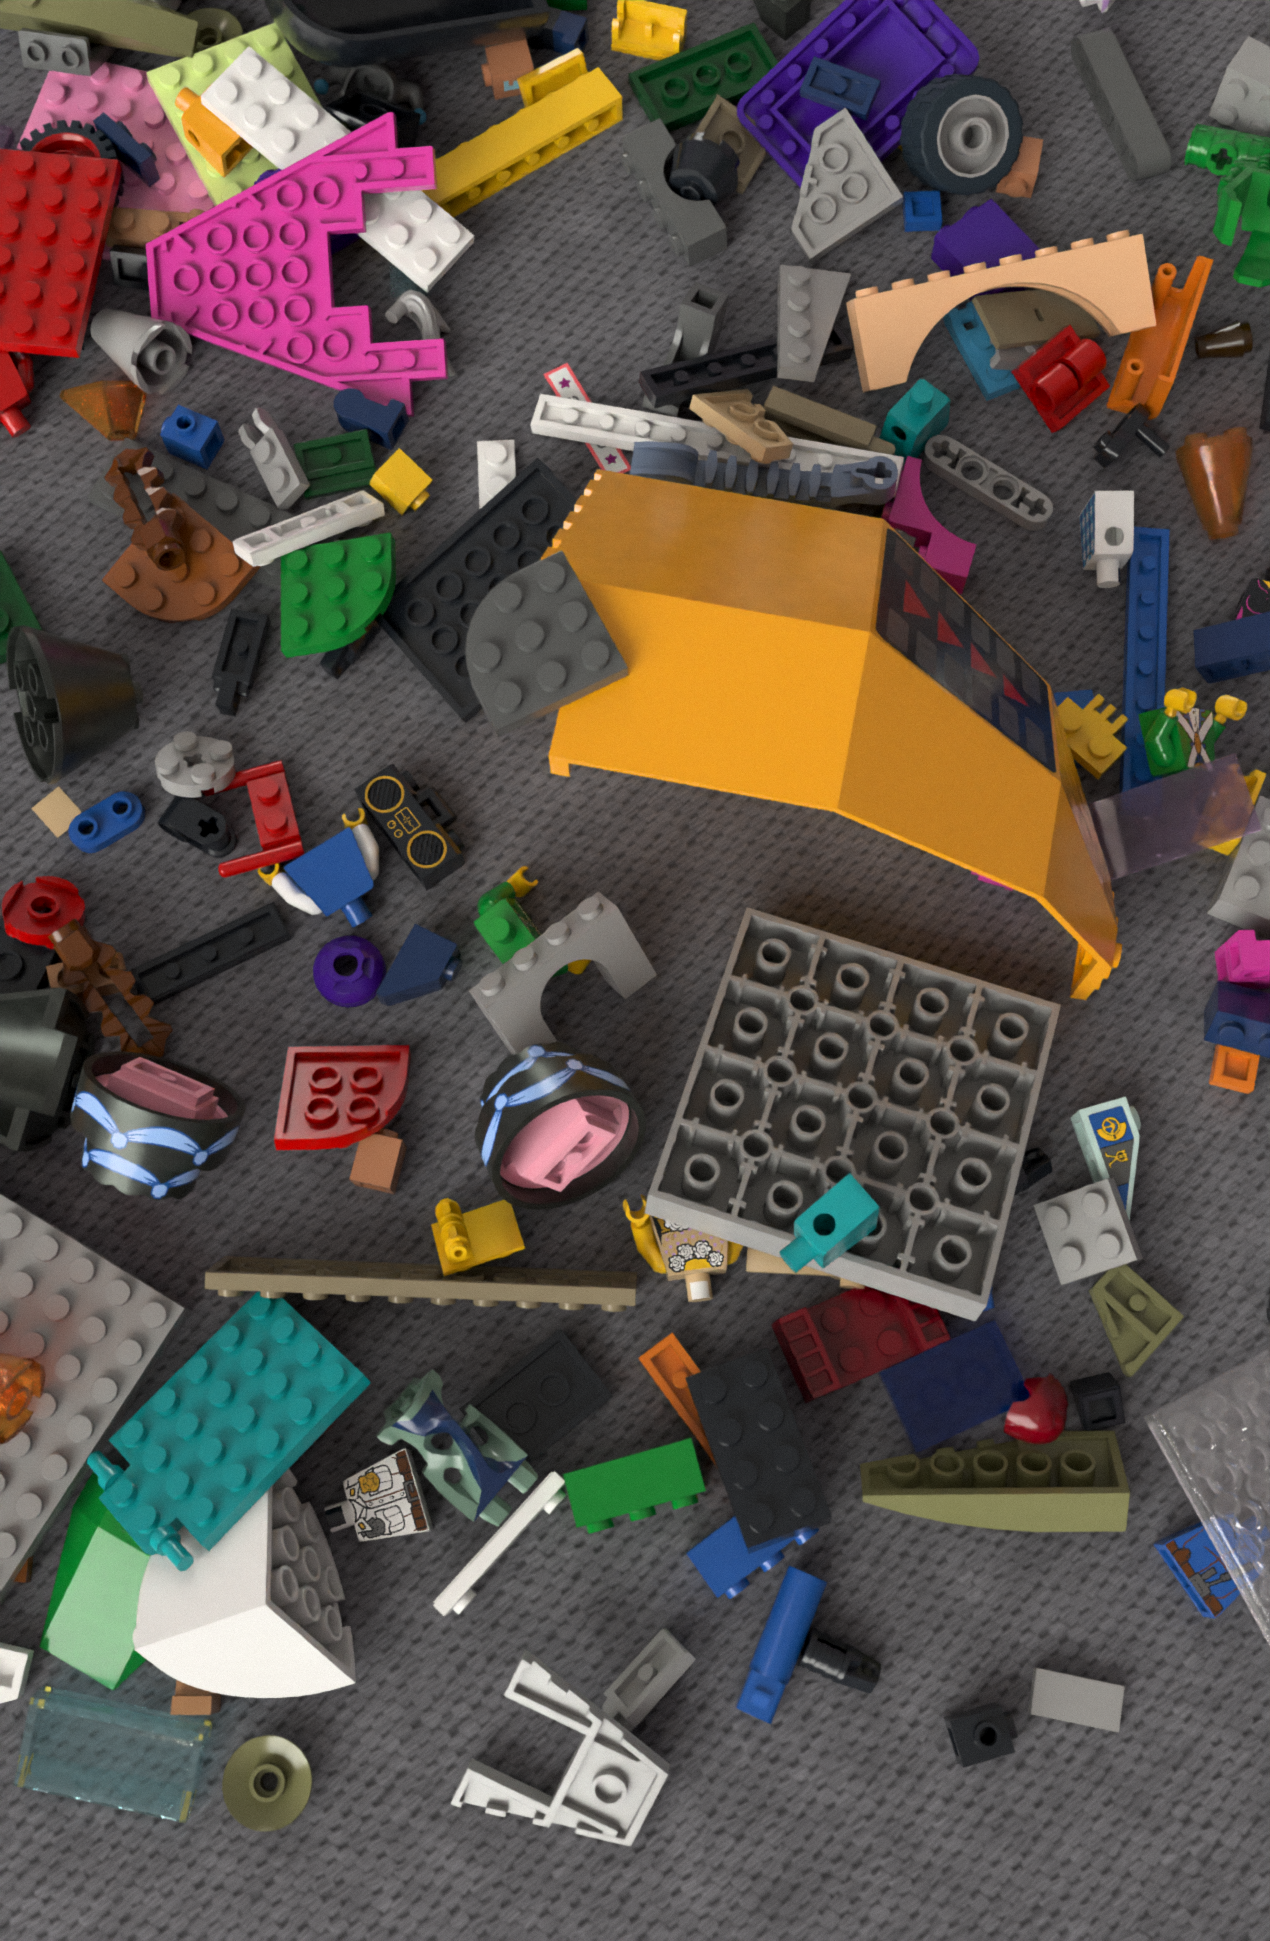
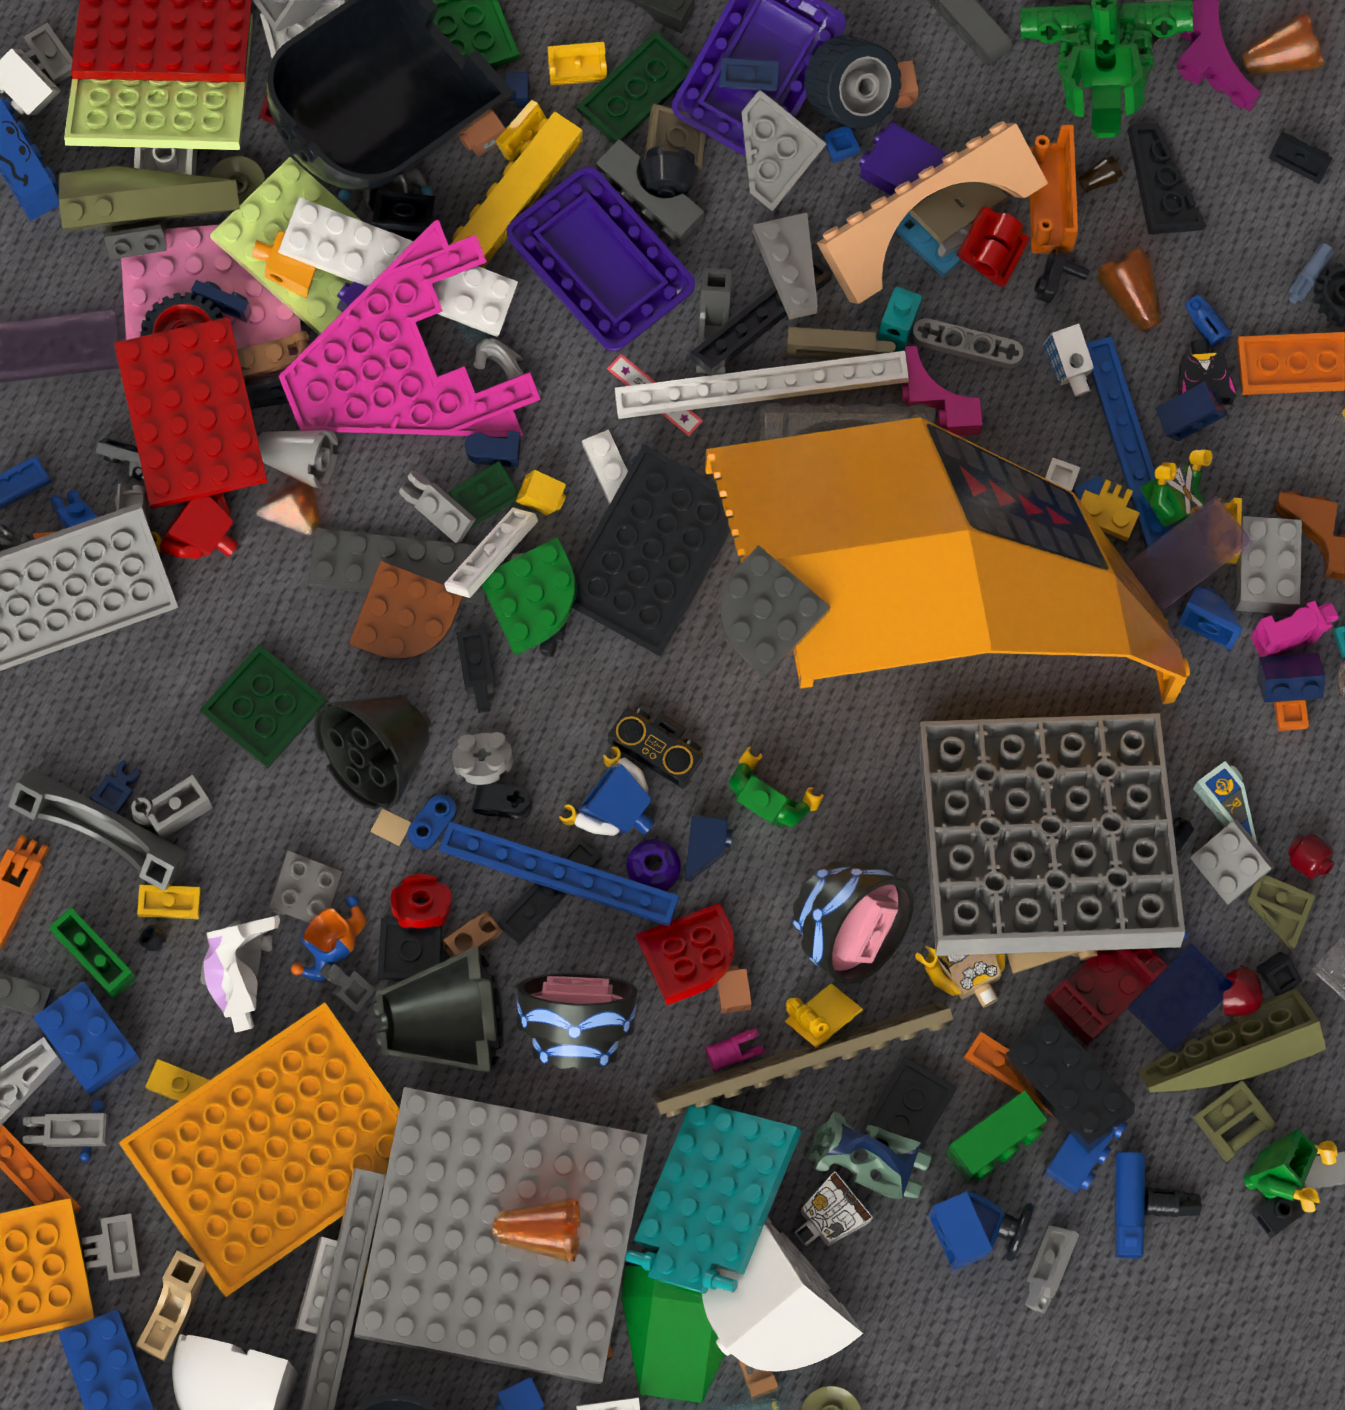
camera: 25 degrees left, 0 degrees up
(79, 951) = (470, 919): reddish brown sword -> none
(158, 536) = (389, 599): reddish brown sword -> none
(192, 436) = (367, 510): blue brick -> none
(225, 938) = (559, 873): none -> blue plate
(273, 816) = (554, 775): red plate -> none
(339, 1238) = (728, 1051): none -> dark pink hinge
(459, 1591) = (939, 1170): white plate -> none
(553, 1593) = (970, 1225): none -> blue piece
(583, 243) = (600, 258): none -> dark purple wedge
(591, 932) = (786, 839): light grey arch -> none
(605, 1783) = (1051, 1333): wing -> none
(743, 424) = (779, 365): tan wing -> none
(843, 486) = (754, 416): sand blue piece -> none
(844, 1213) = (1072, 906): teal torso -> none
(961, 1565) = (1226, 1113): none -> olive plate
(1009, 1679) = (1285, 1167): none -> green torso
(1050, 669) = (1062, 473): none -> white plate
(1172, 909) = (1211, 617): none -> blue slope
(1196, 1262) = (1311, 856): none -> dark red head

